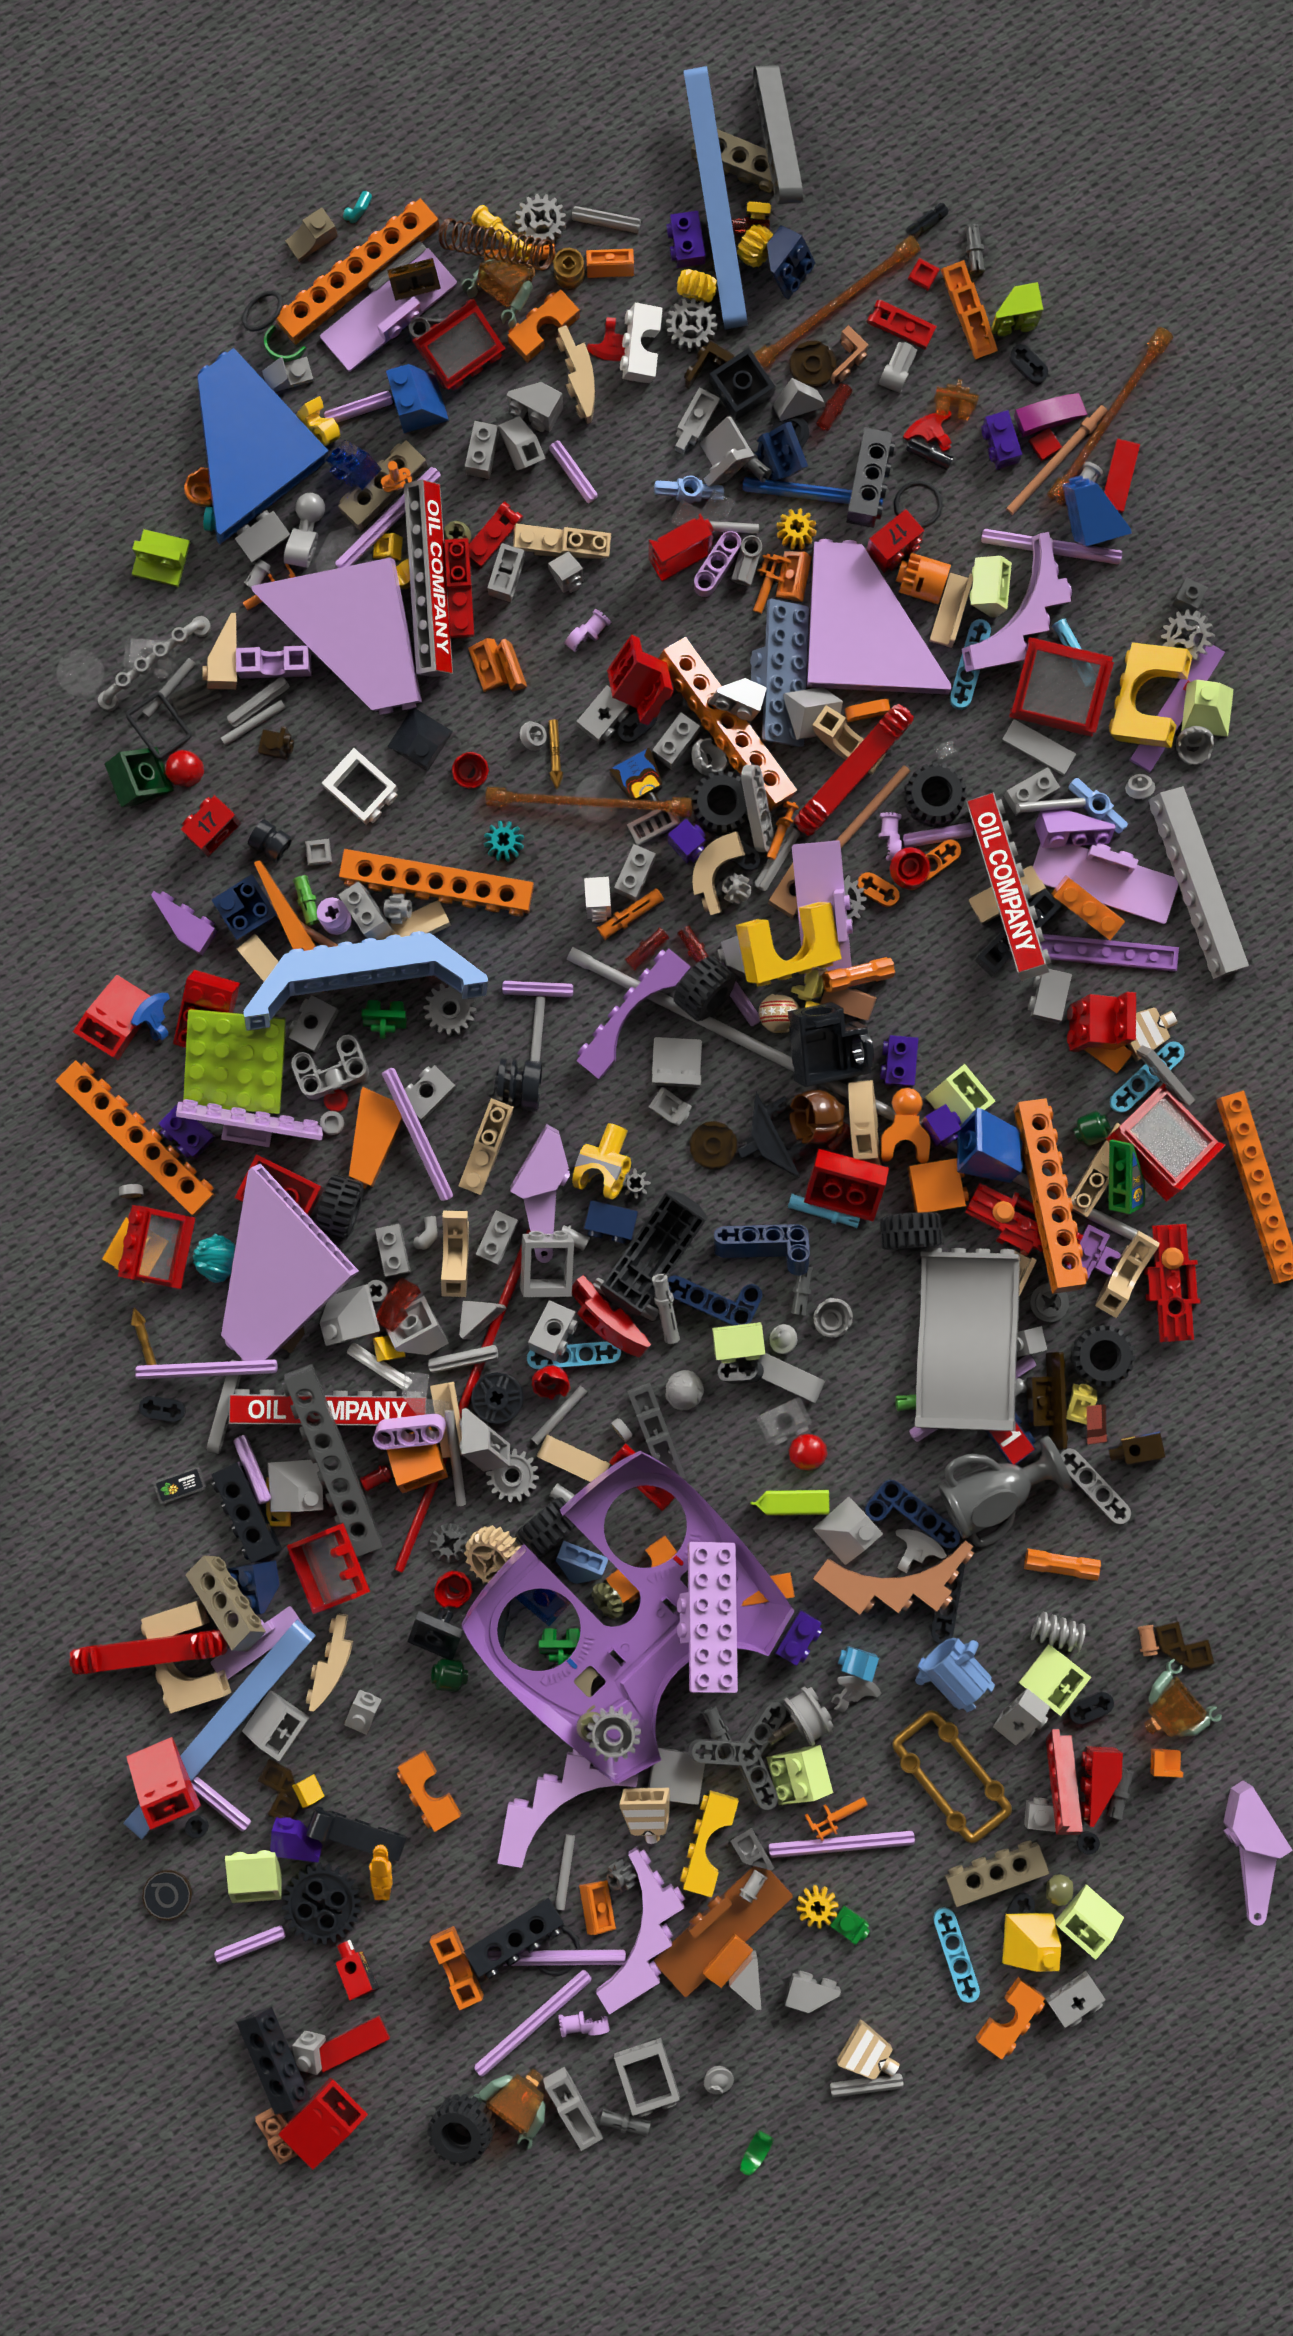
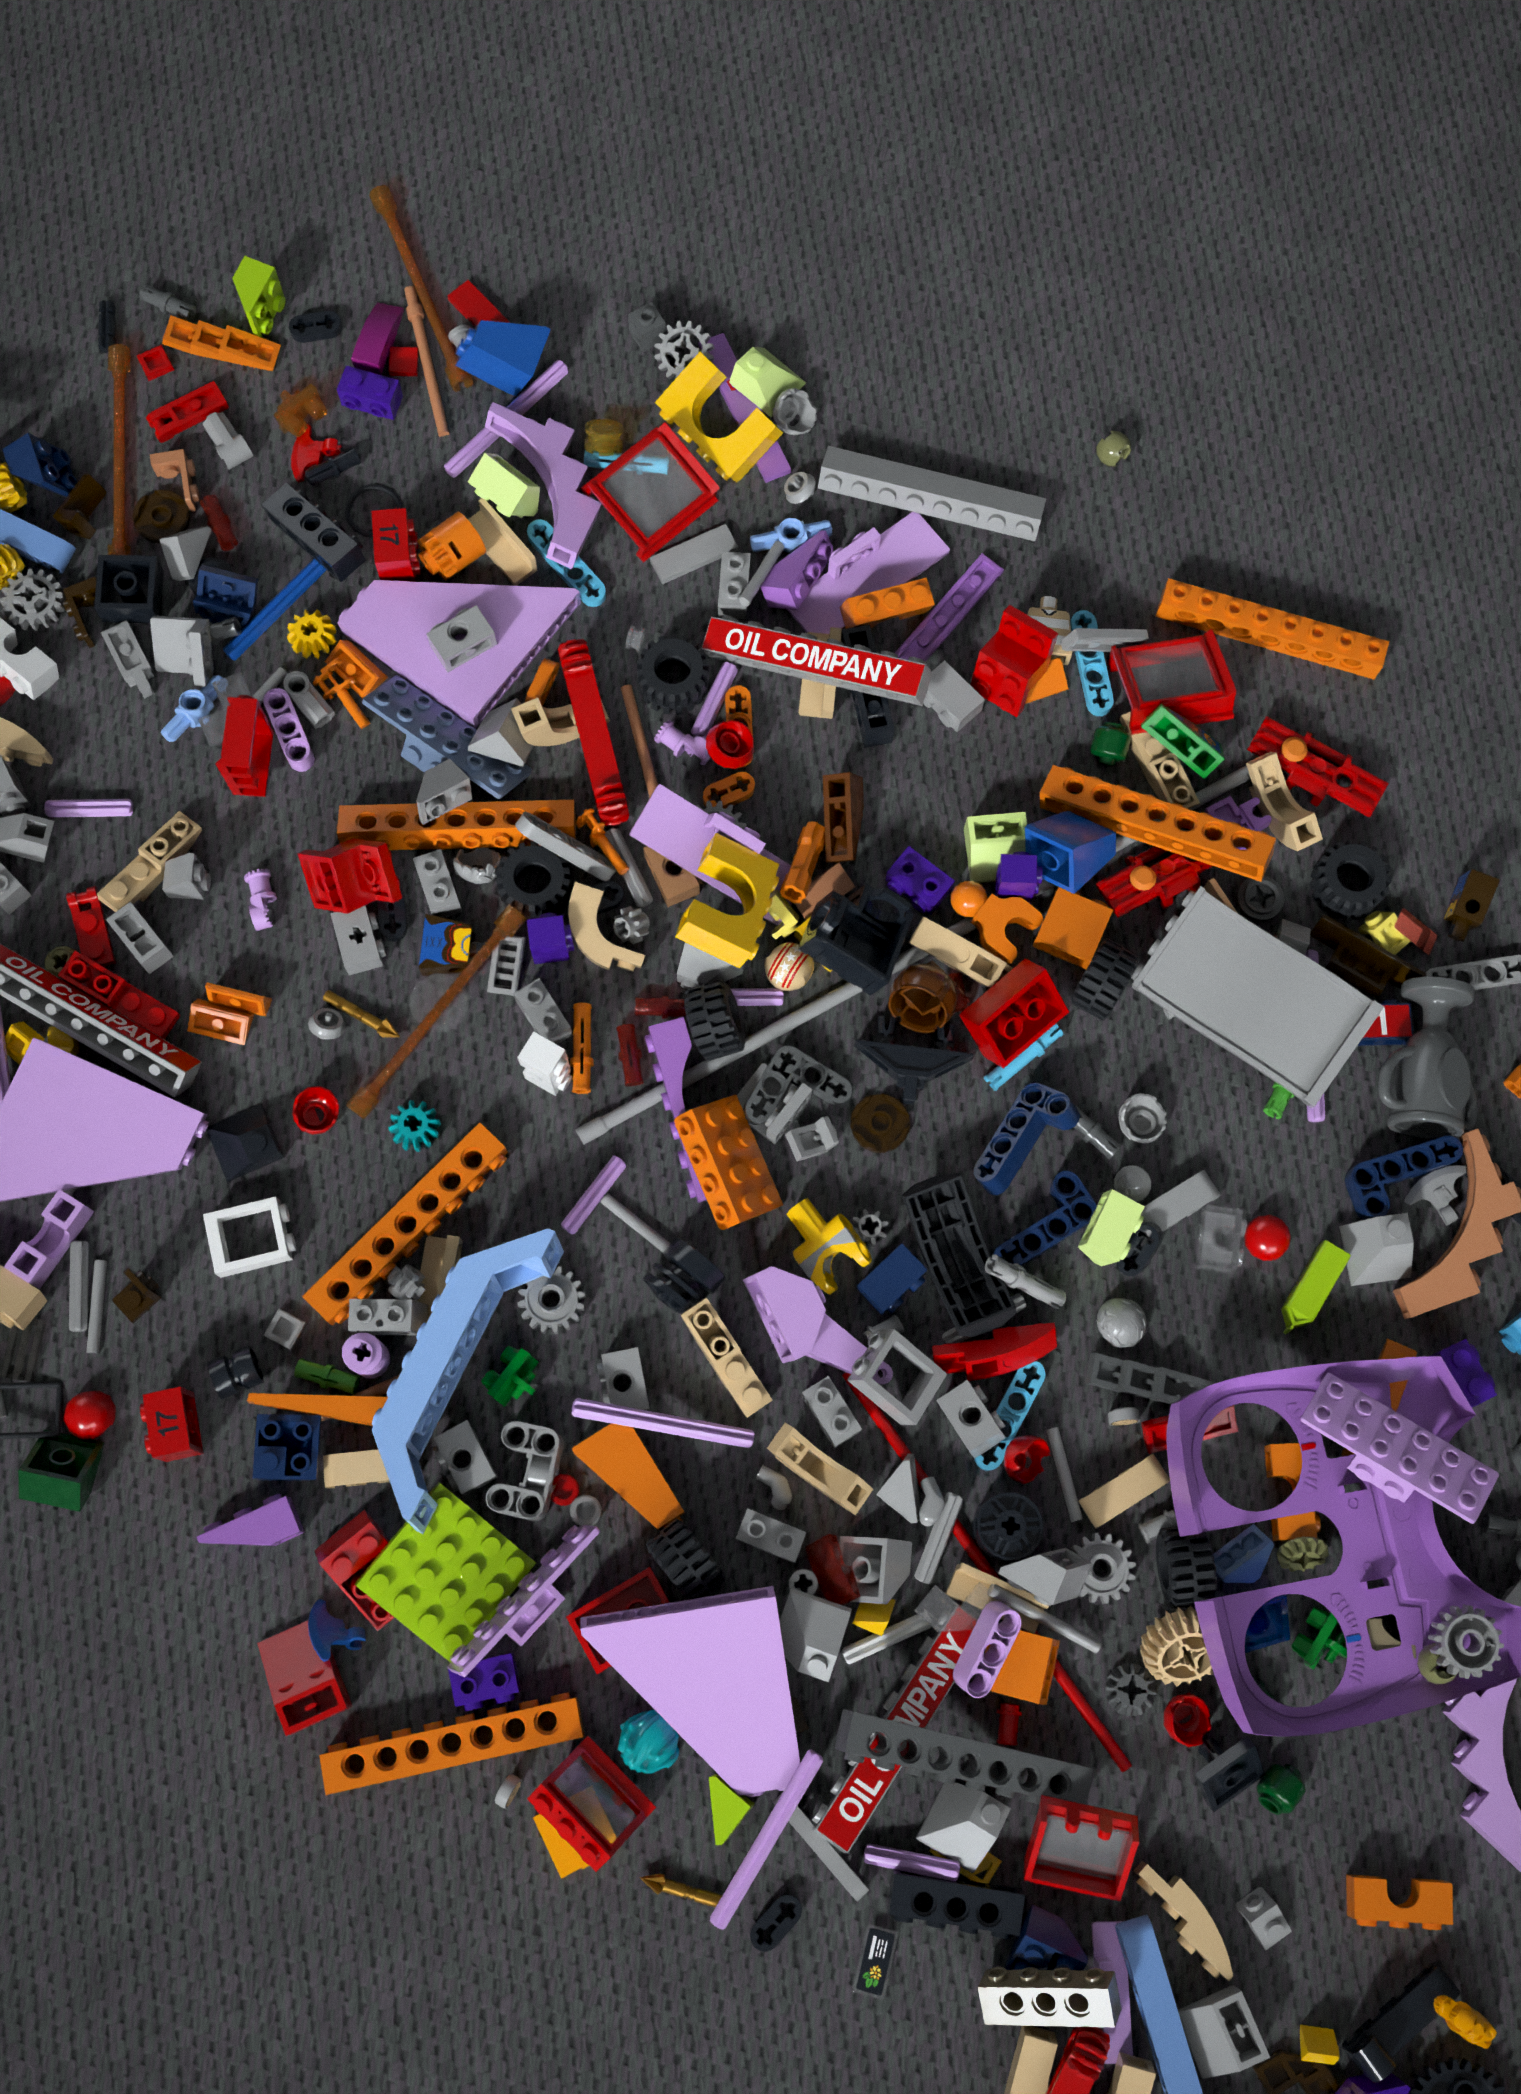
camera: 60 degrees left, 10 degrees down
(208, 1333) = (727, 1808): none -> lime slope
(482, 1340) = (933, 1502): none -> light grey arm
(615, 1062) = (727, 1162): none -> orange bracket
(707, 1067) = (796, 1074): none -> dark grey beam
(780, 304) = (79, 505): none -> dark brown bracket
(864, 646) = (455, 652): none -> light grey brick
(910, 979) = (842, 815): none -> reddish brown slope
(1081, 625) = (603, 436): none -> clear yellow wheel

